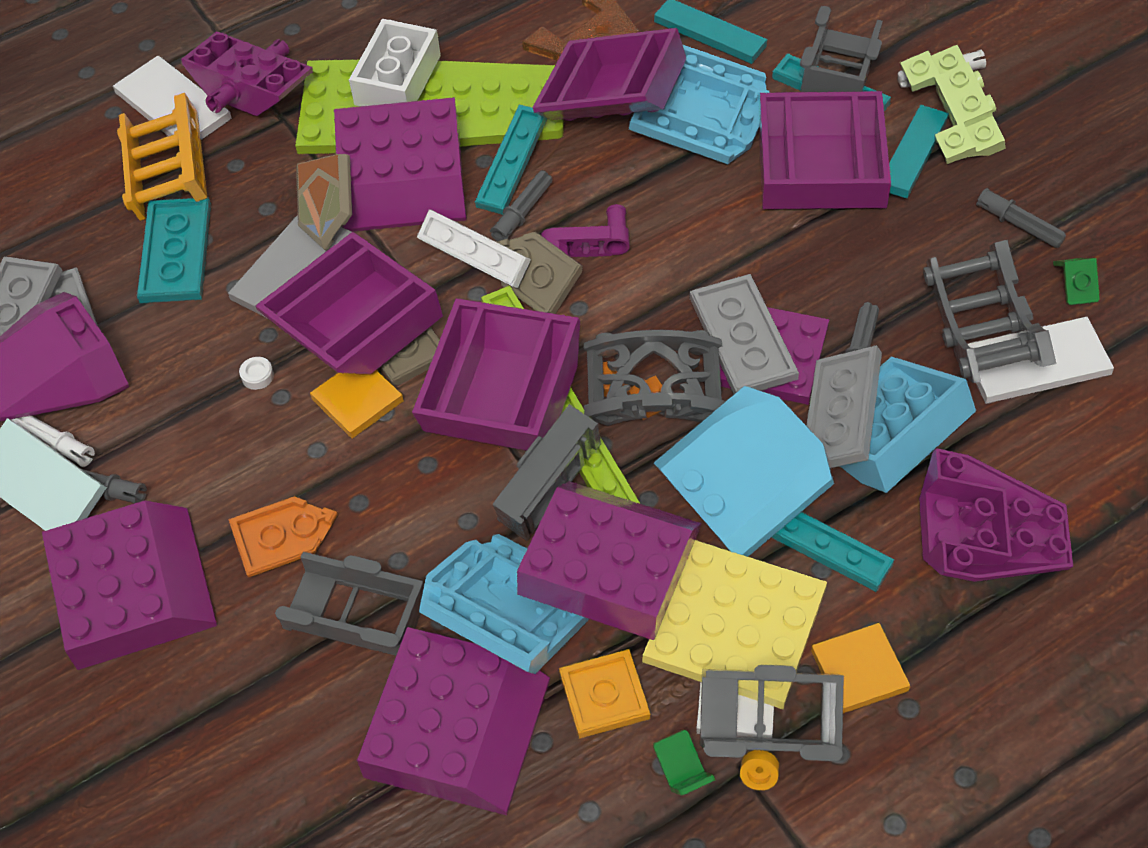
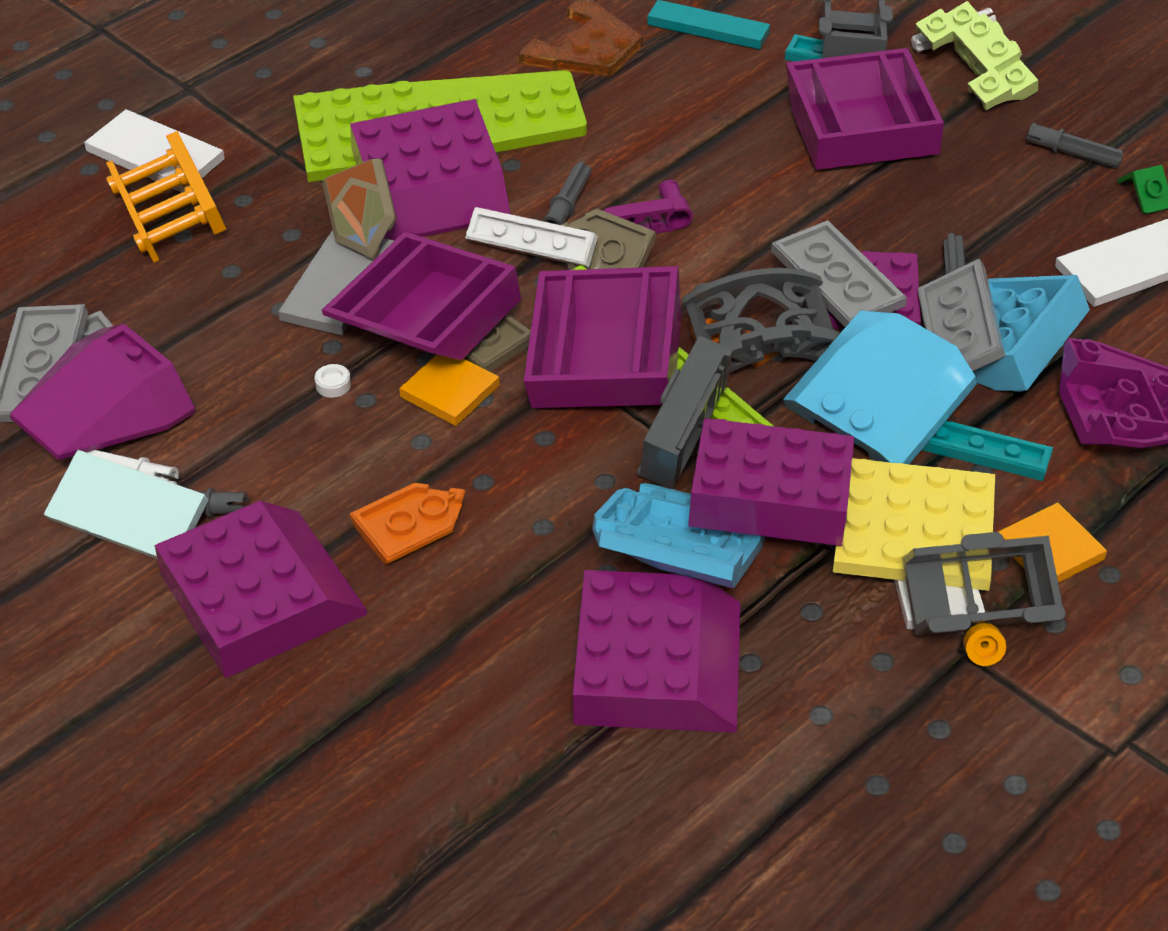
camera: 15 degrees left, 10 degrees down
(174, 250) = (203, 283): teal tile -> none
(243, 74) = (231, 111): magenta slope -> none
(359, 573) = (511, 540): dark grey piece -> none
(395, 64) = (398, 77): white brick -> none
(510, 160) = (543, 156): teal tile -> none
(604, 693) = (801, 608): light orange tile -> none
(613, 75) = (632, 64): magenta slope -> none
(681, 763) = (902, 651): green bracket -> none
(709, 109) = (725, 85): medium azure wedge -> none
(915, 149) = (952, 98): teal tile -> none
(1032, 340) = (1066, 254): dark grey fence -> none

